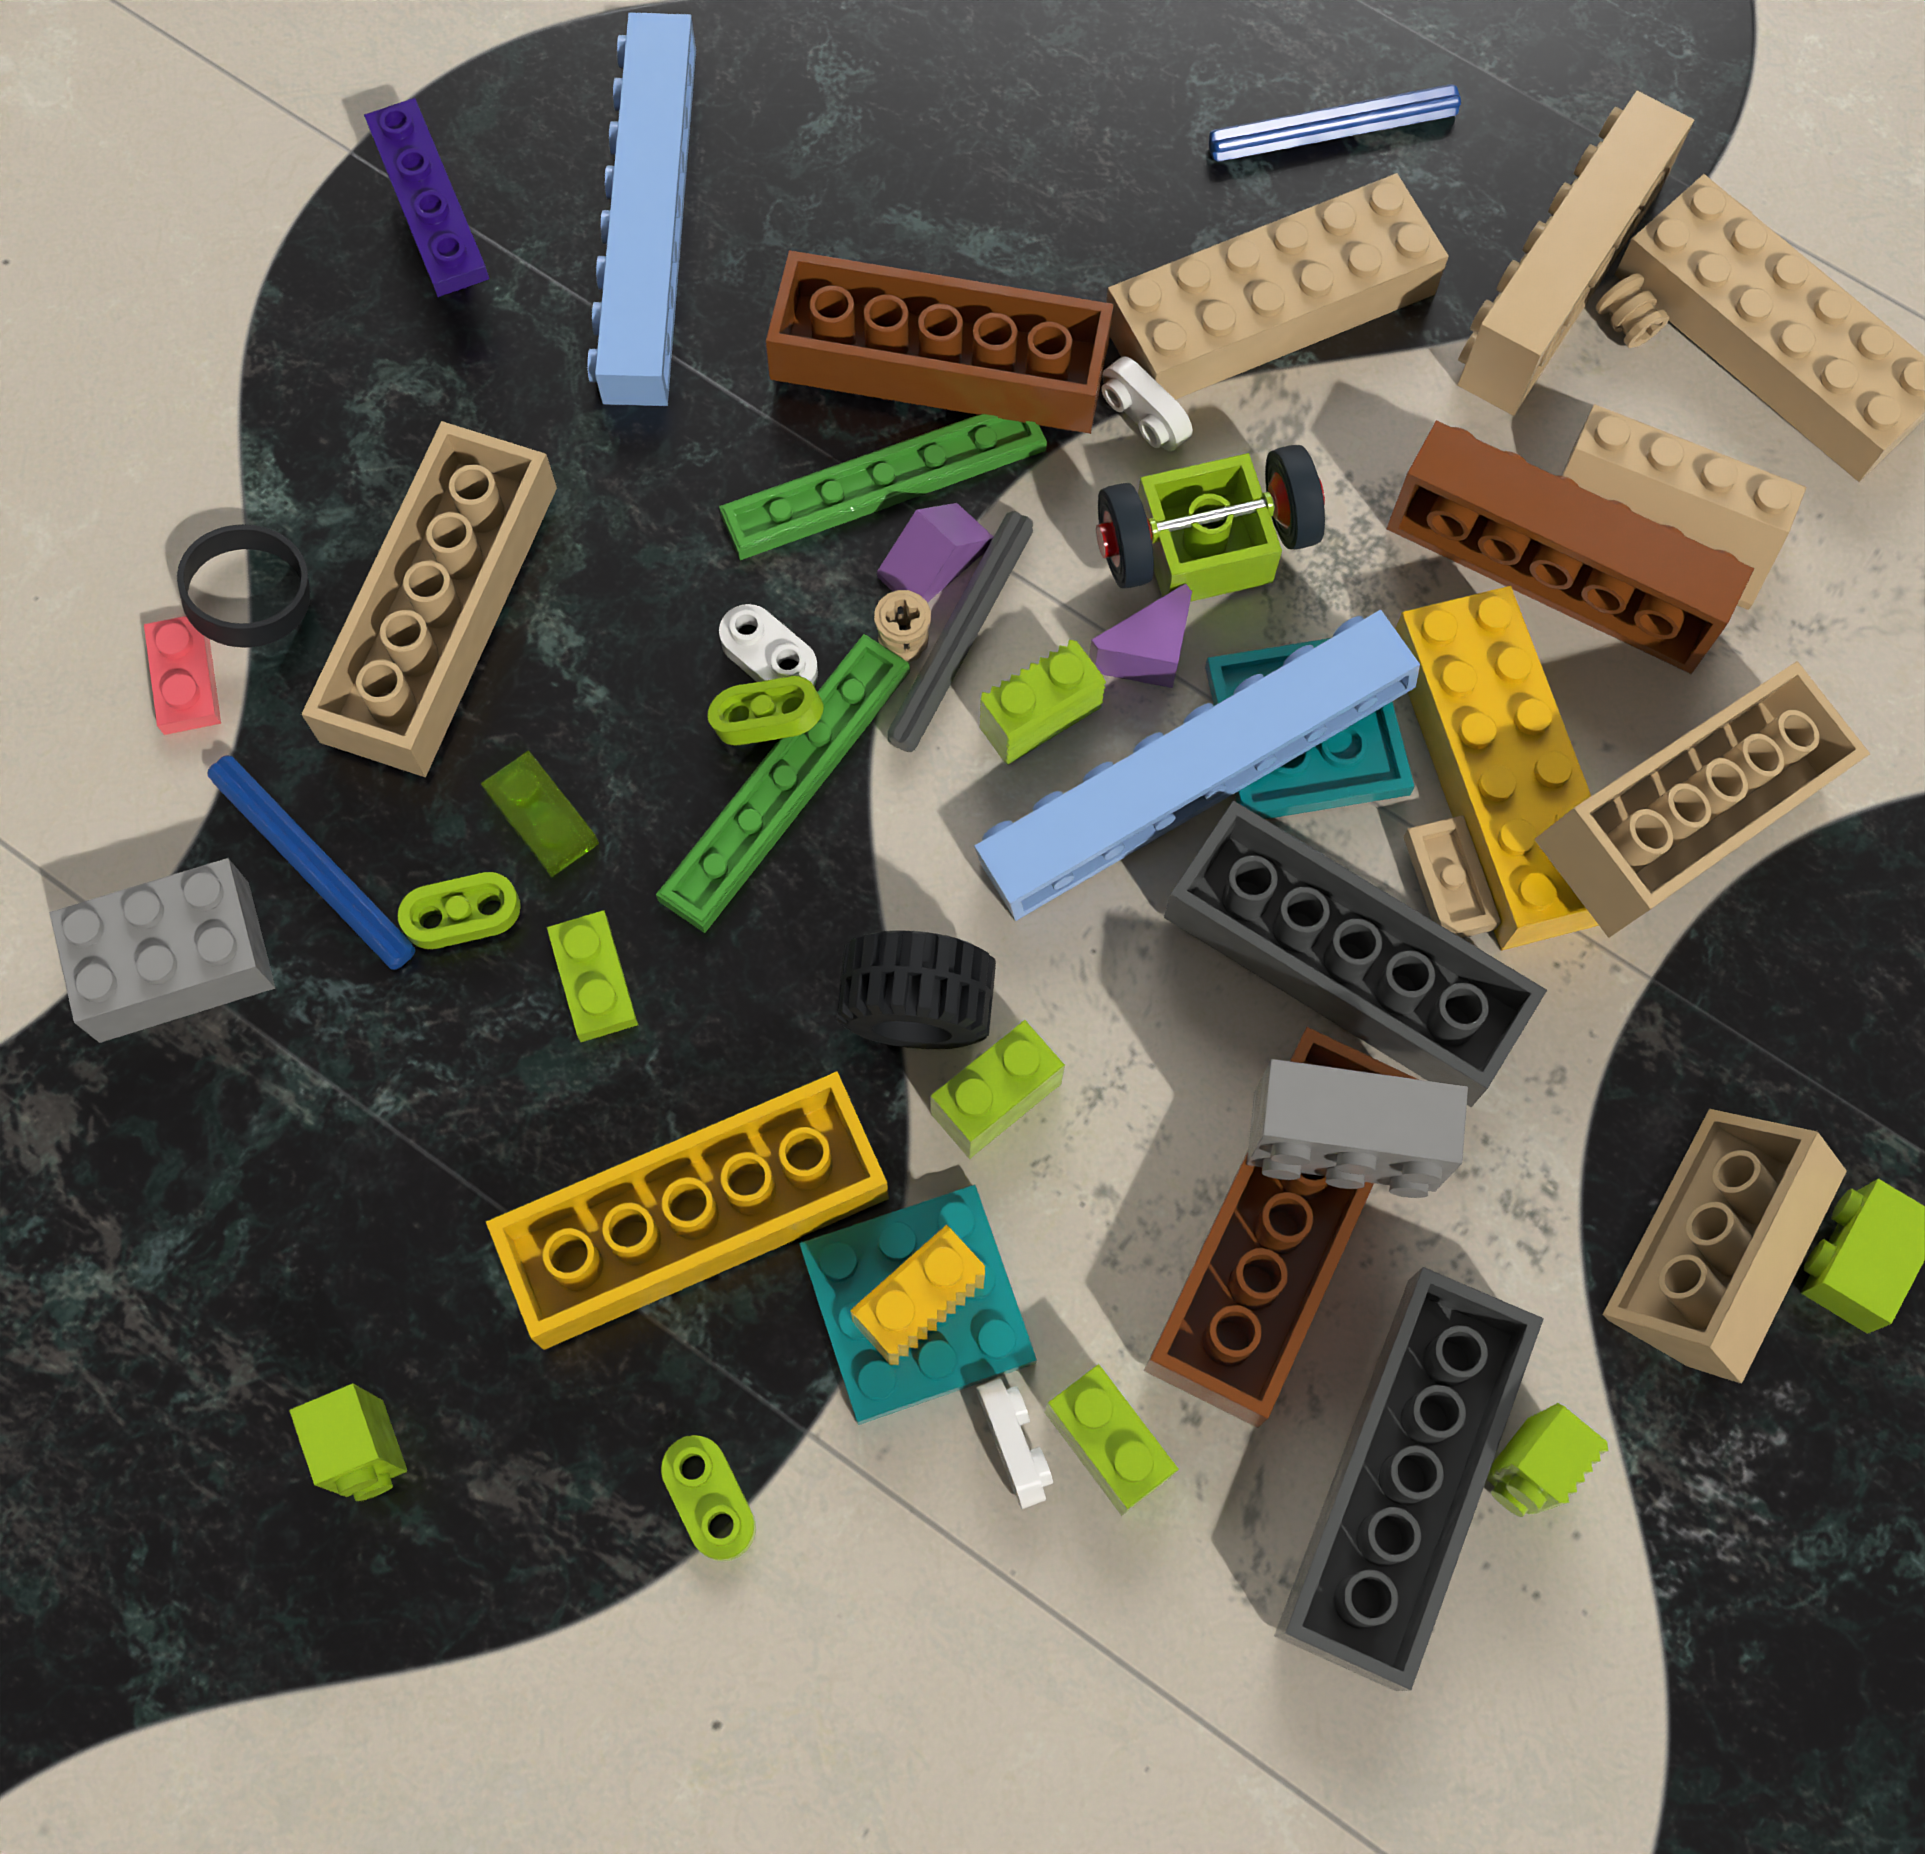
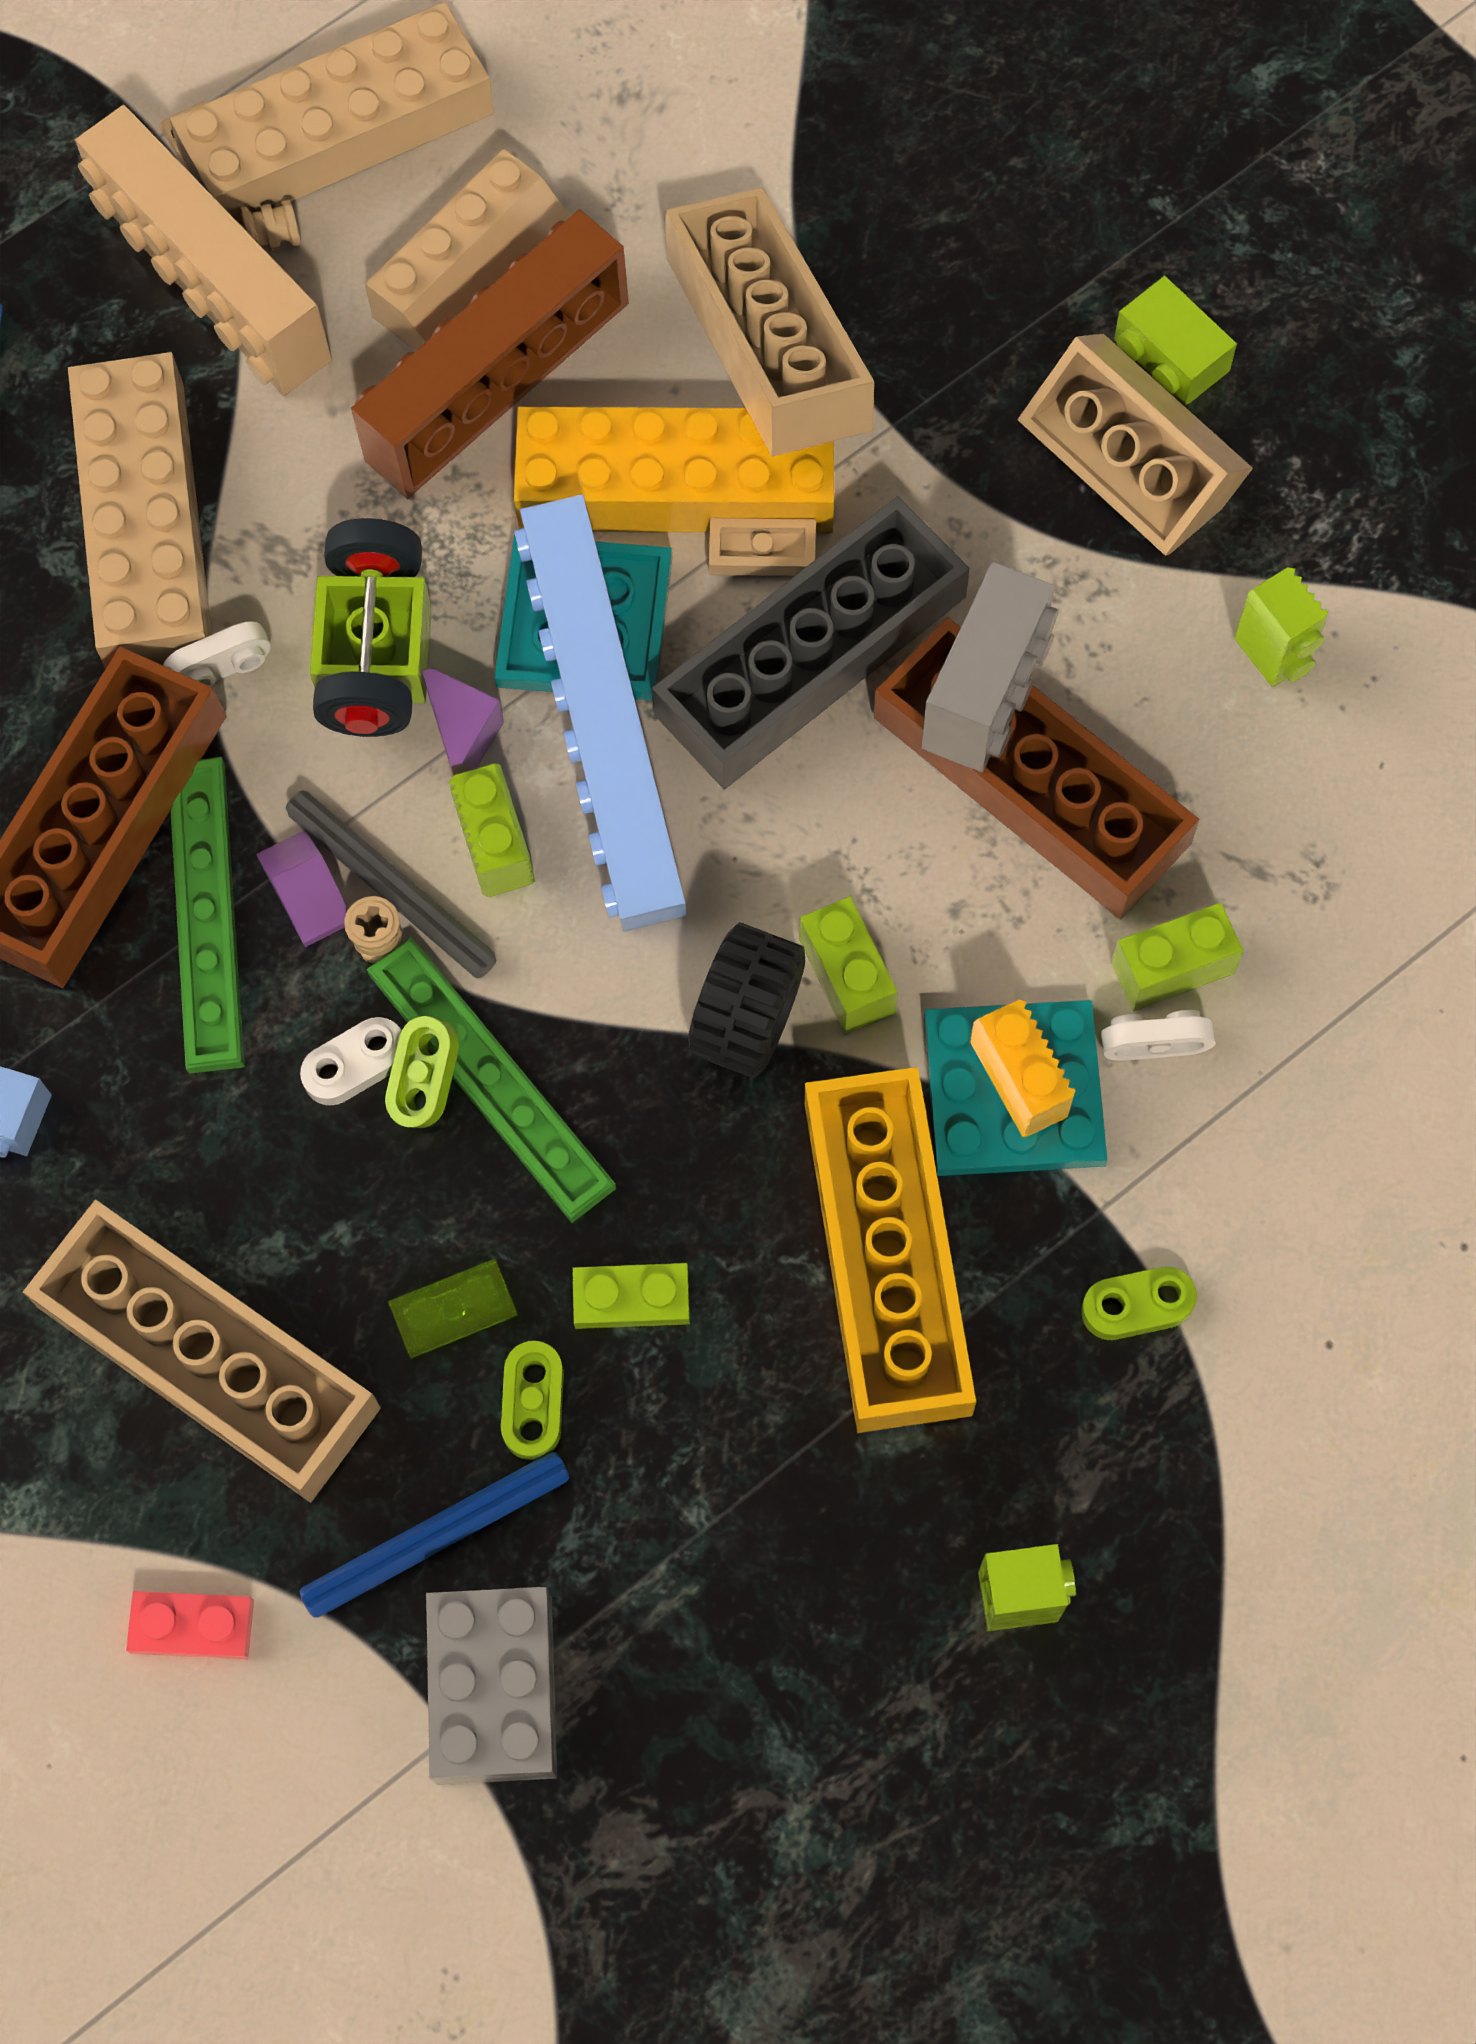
camera: 70 degrees left, 0 degrees up
(238, 538) = (84, 1498): black tyre -> none
(1409, 1480) = (1267, 733): dark grey brick -> none

